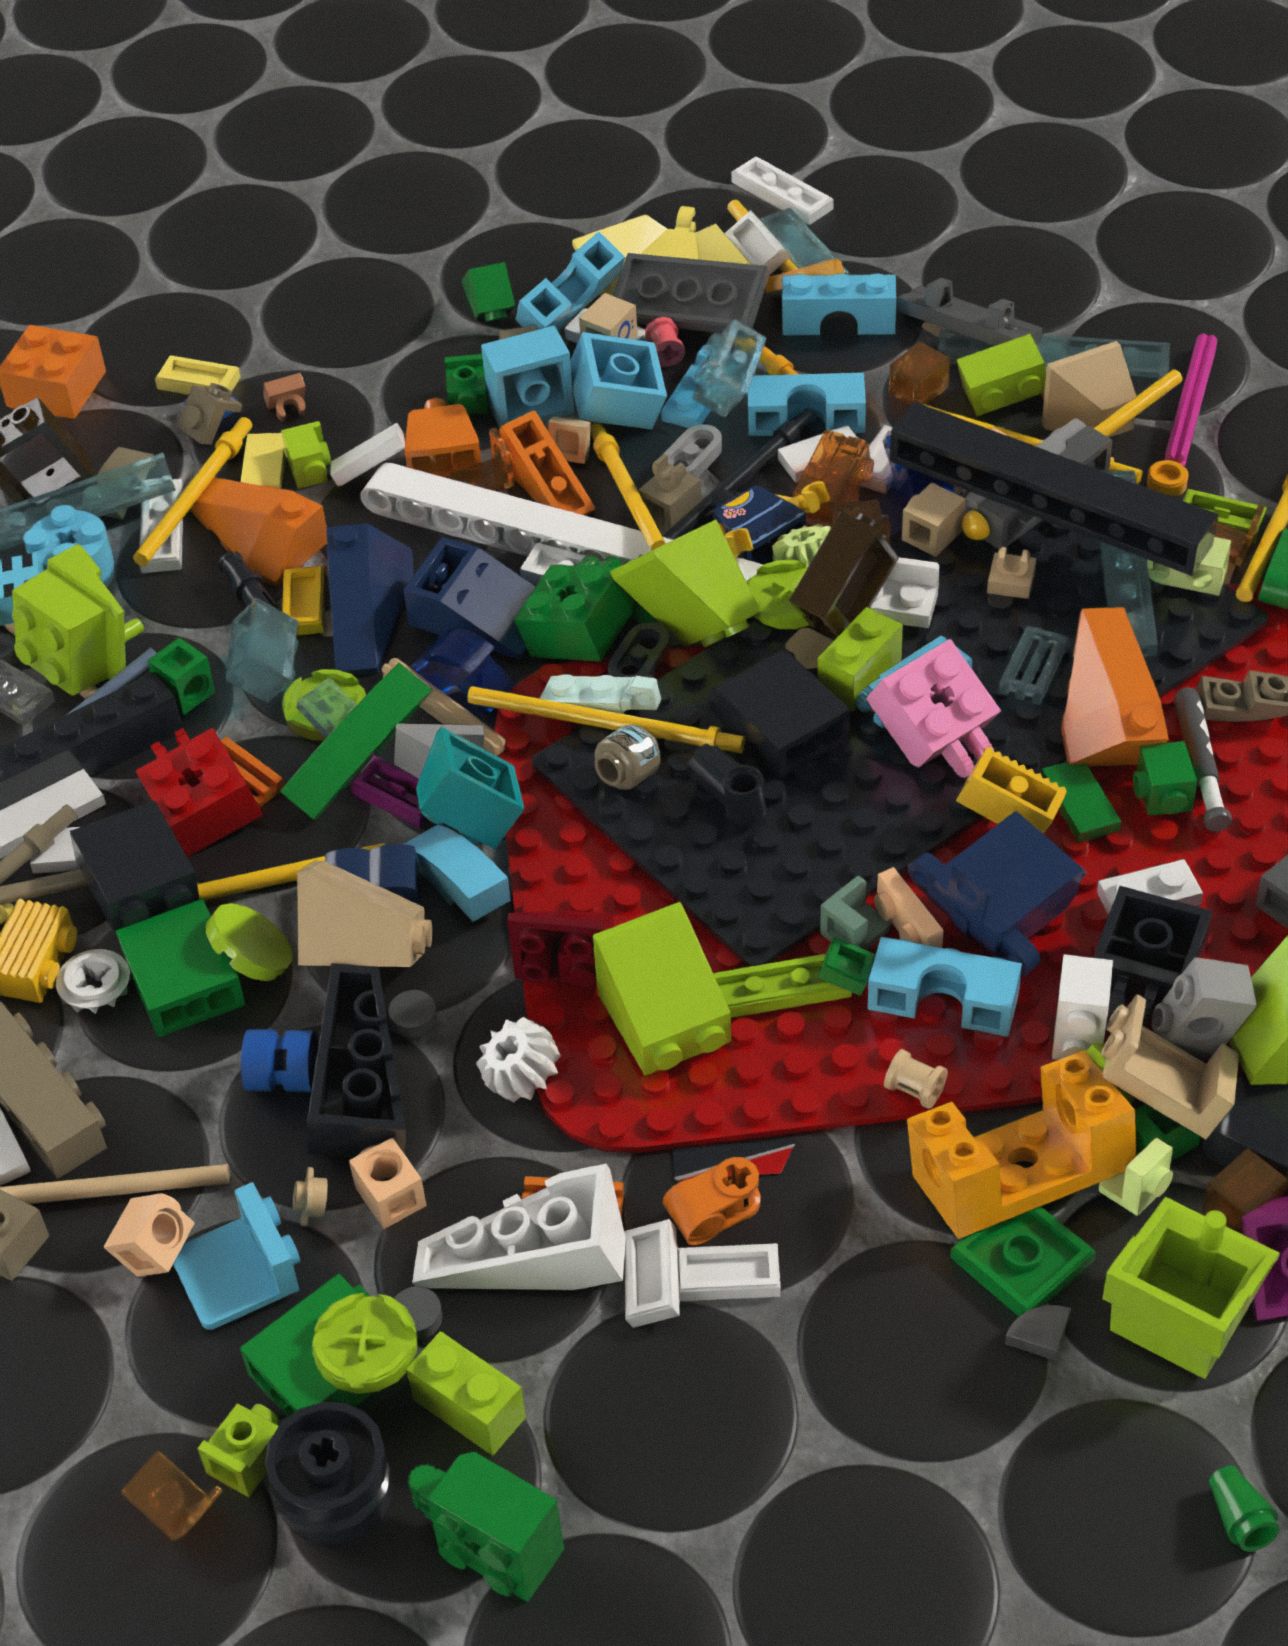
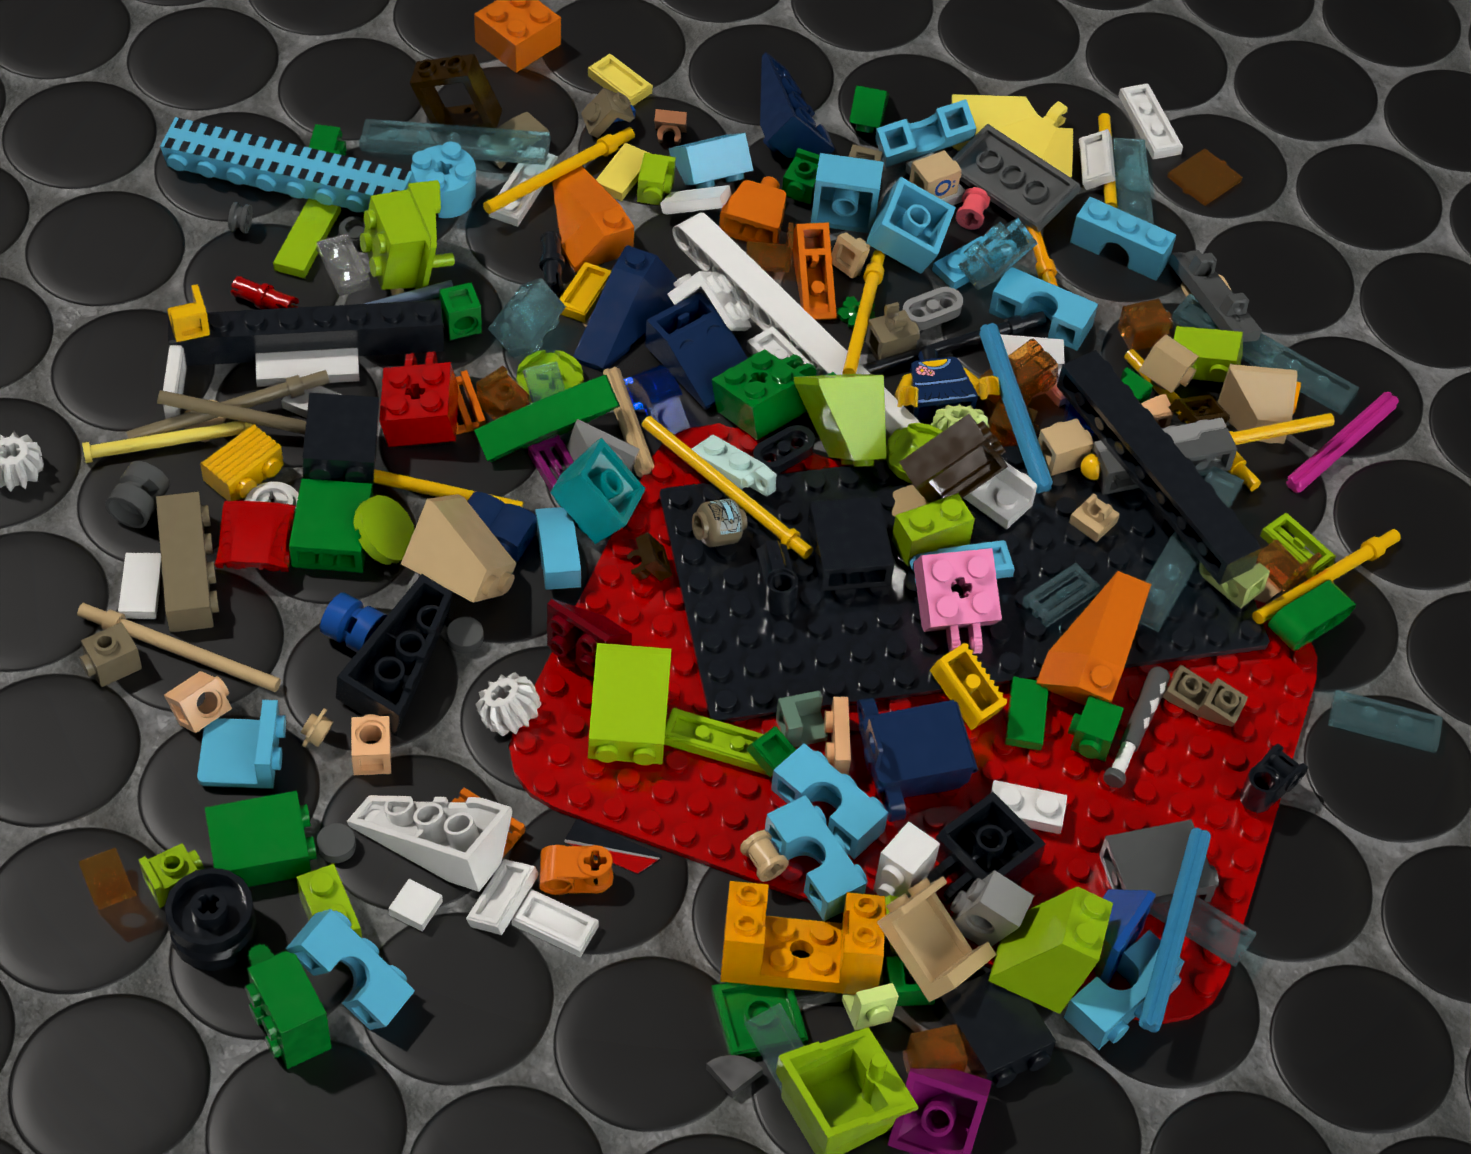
camera: 20 degrees right, 5 degrees up
(98, 1020) = (255, 535): none -> red slope
(285, 743) = (500, 394): none -> clear orange brick
(359, 408) = (713, 159): none -> medium azure slope
(364, 1343) = (282, 845): lime tile -> none
(405, 337) = (786, 116): none -> dark blue wedge
(428, 535) = (719, 292): none -> white bracket
(555, 1334) = (415, 905): none -> white tile
(572, 829) = (652, 558): none -> dark brown tile
(581, 1445) = (377, 987): none -> medium azure arch
(607, 496) = (849, 311): none -> green plant
(828, 267) = (1124, 204): light orange tile -> none
(853, 500) = (1016, 407): none -> dark azure axle
(872, 219) = (1204, 177): none -> clear orange piece
(941, 1031) = (803, 831): none -> medium azure arch
(979, 397) = (1169, 364): none -> tan brick
(1025, 426) = (1186, 405): none -> dark brown tile
(1069, 1272) = (773, 1036): none -> clear light blue tile
(1168, 478) = (1278, 496): light orange tile -> none

